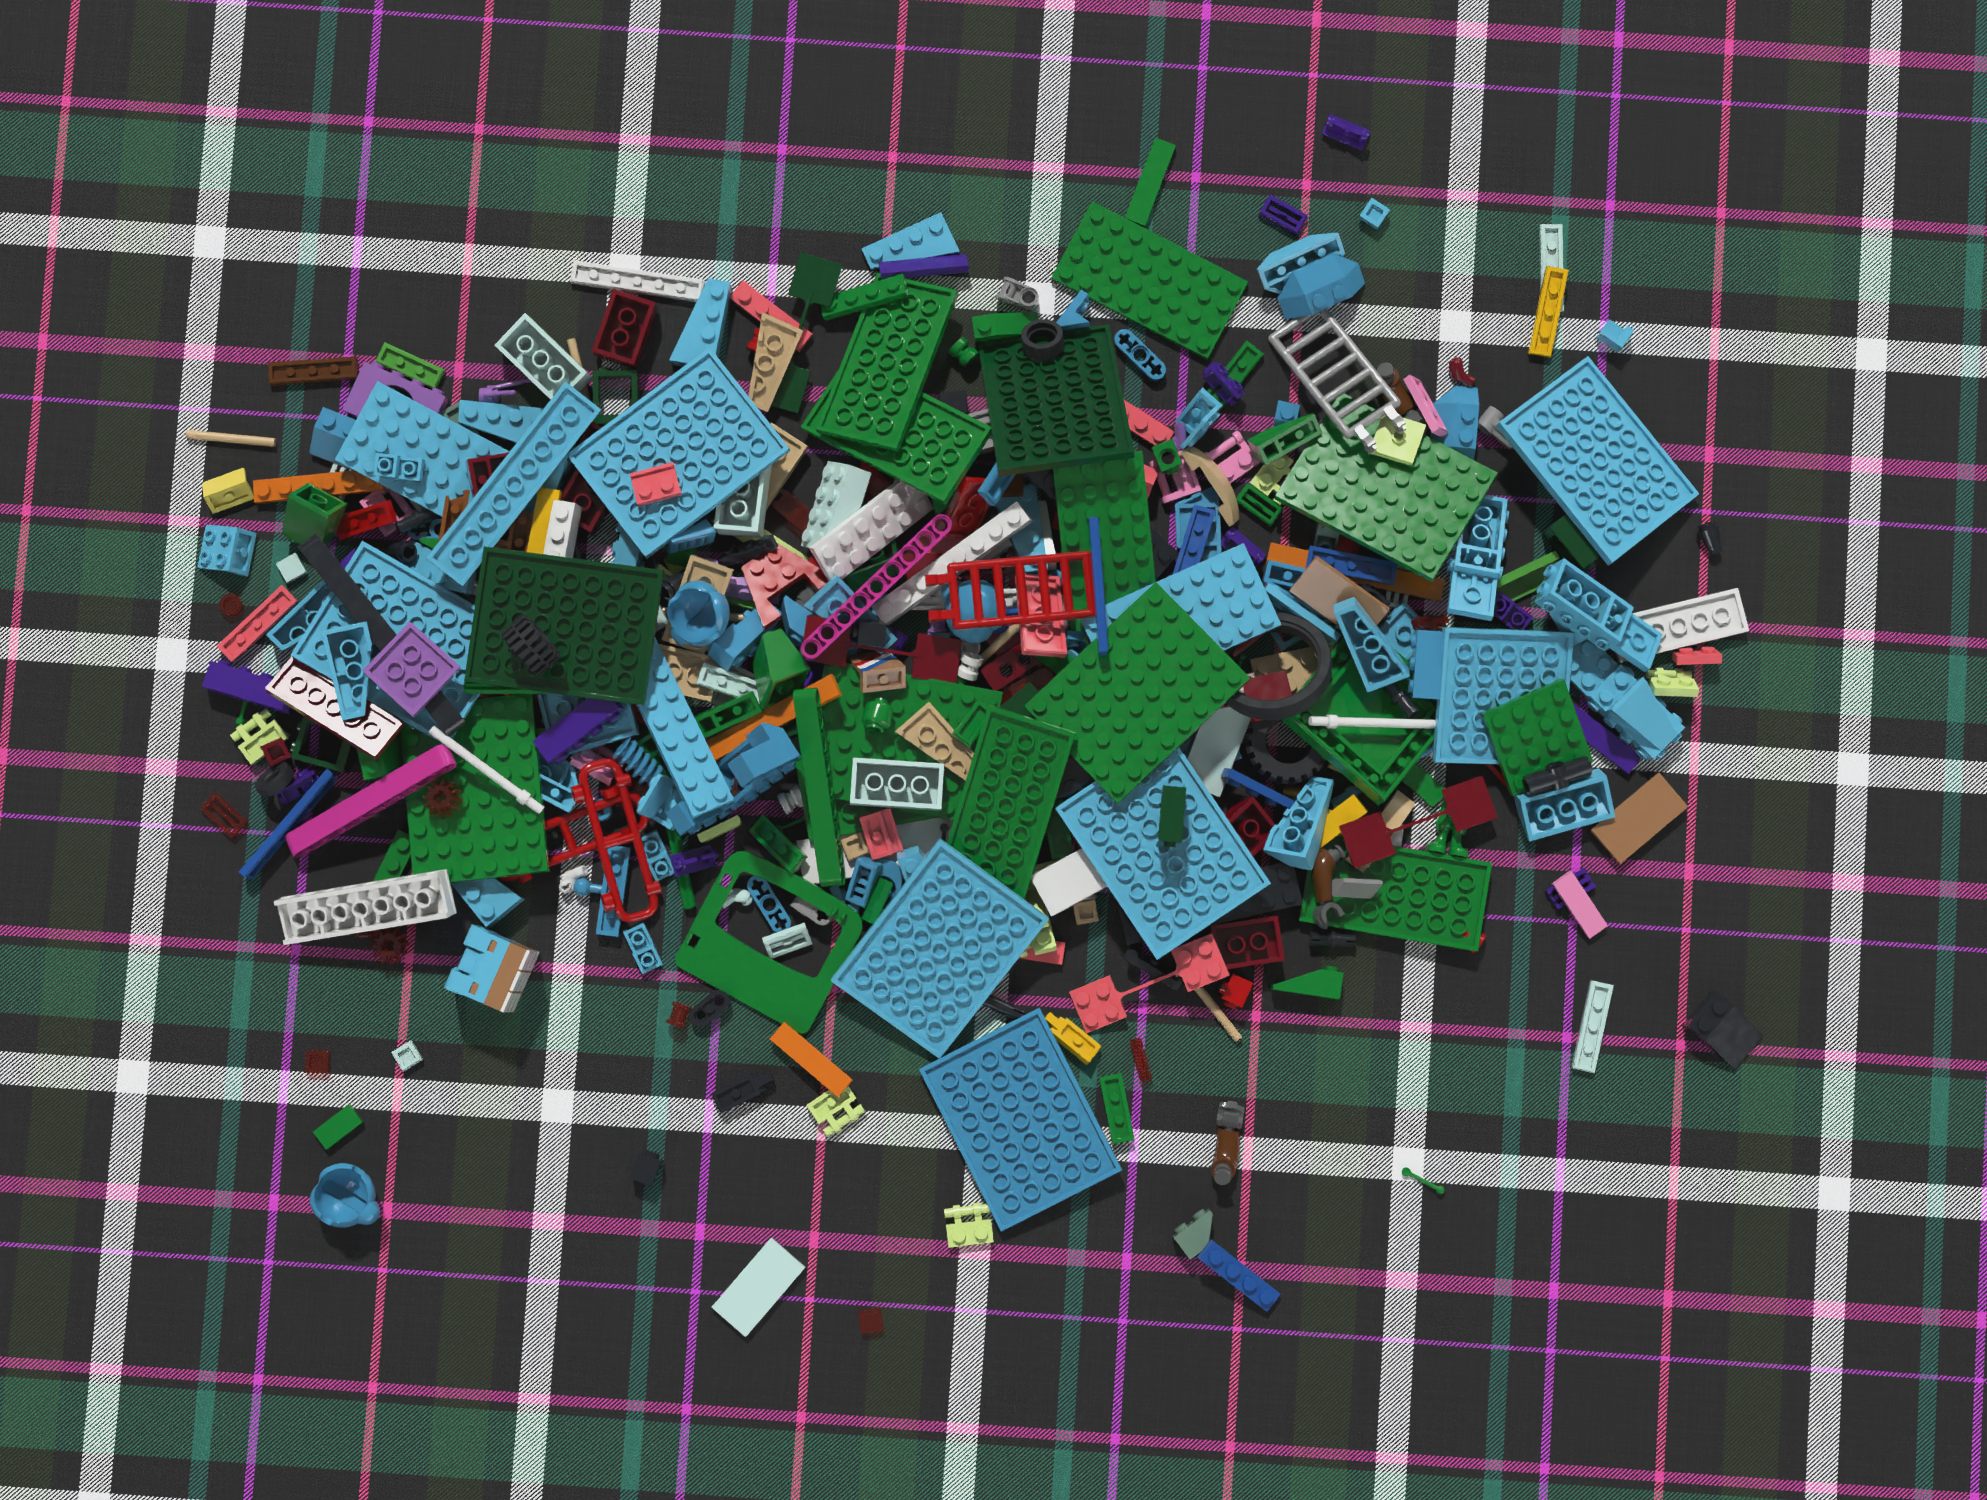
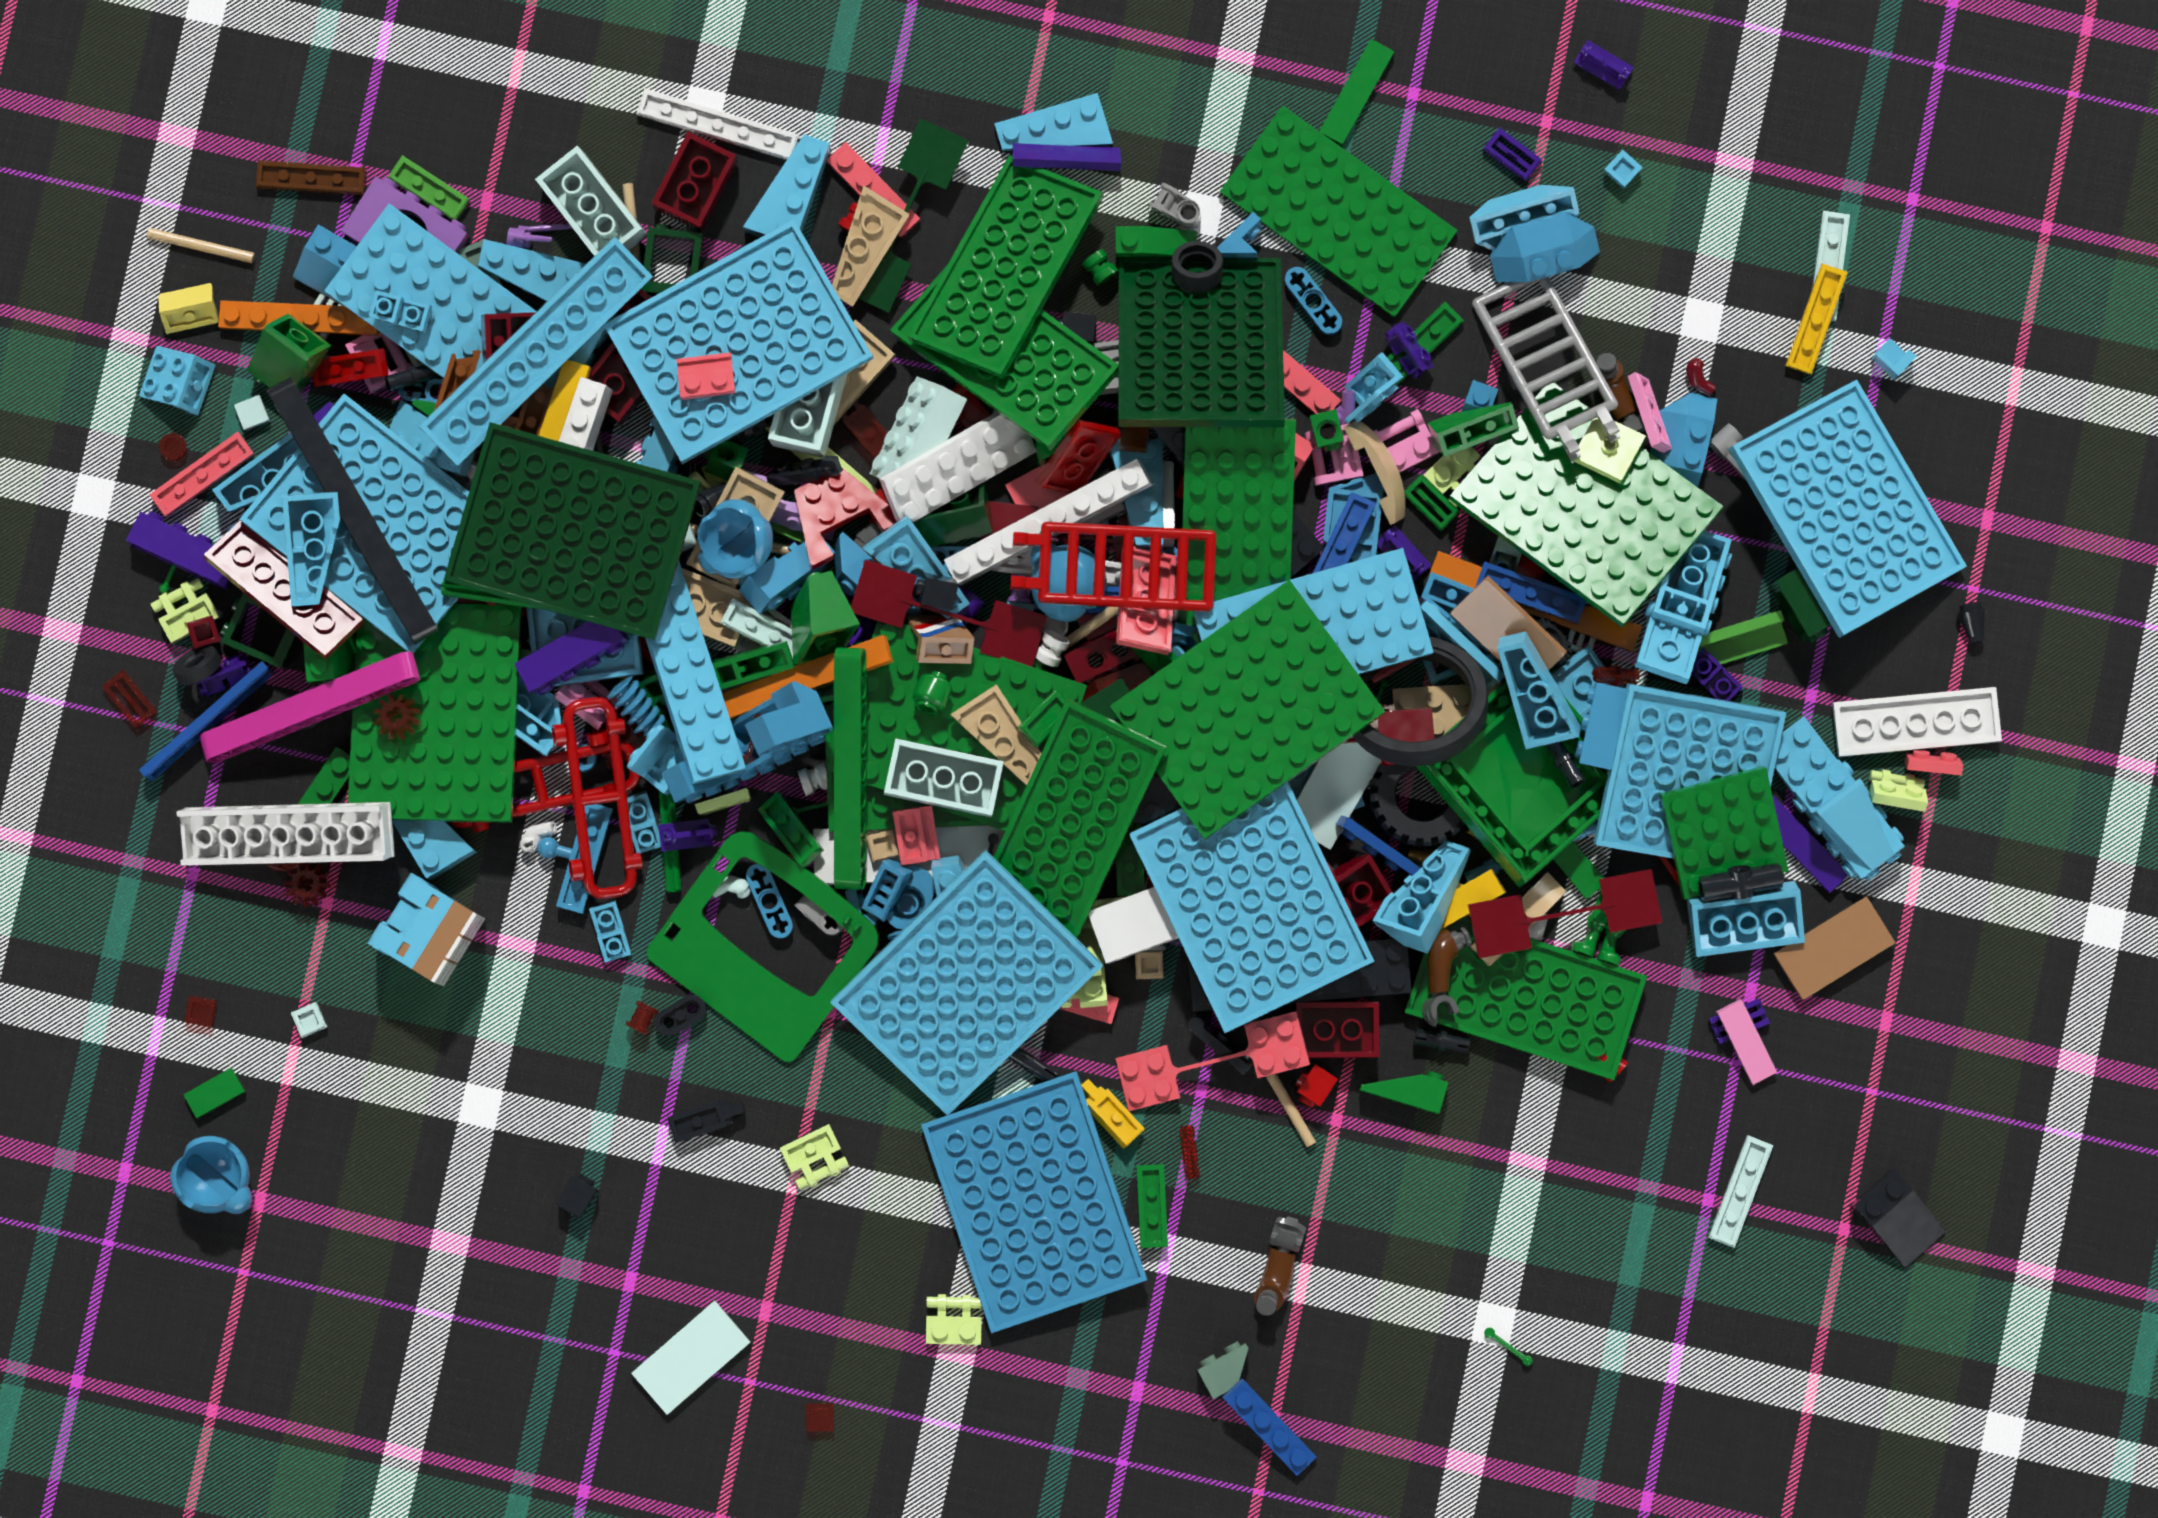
camera: 10 degrees right, 0 degrees up
(403, 550) = (390, 411): black cone -> none
(411, 669) = (383, 557): medium lavender plate -> none
(523, 797) = (493, 728): white bar -> none
(530, 645) = (530, 549): black tyre -> none
(695, 536) = (743, 445): dark azure slope -> none
(785, 938) = (784, 943): light aqua tile -> none
(811, 1059) = (793, 1094): orange tile -> none
(866, 297) = (992, 183): green plate -> none
(877, 900) = (900, 914): green tile -> none
(883, 579) = (964, 532): dark pink beam -> none
(994, 486) = (1111, 437): dark azure tile -> none
(1098, 588) = (1218, 575): blue tile -> none
(1171, 815) = (1266, 862): dark green window -> none
(1333, 721) = (1478, 777): white bar -> none
(1355, 887) = (1477, 982): light grey slope -> none
(1596, 614) = (1816, 694): medium azure wedge -> none

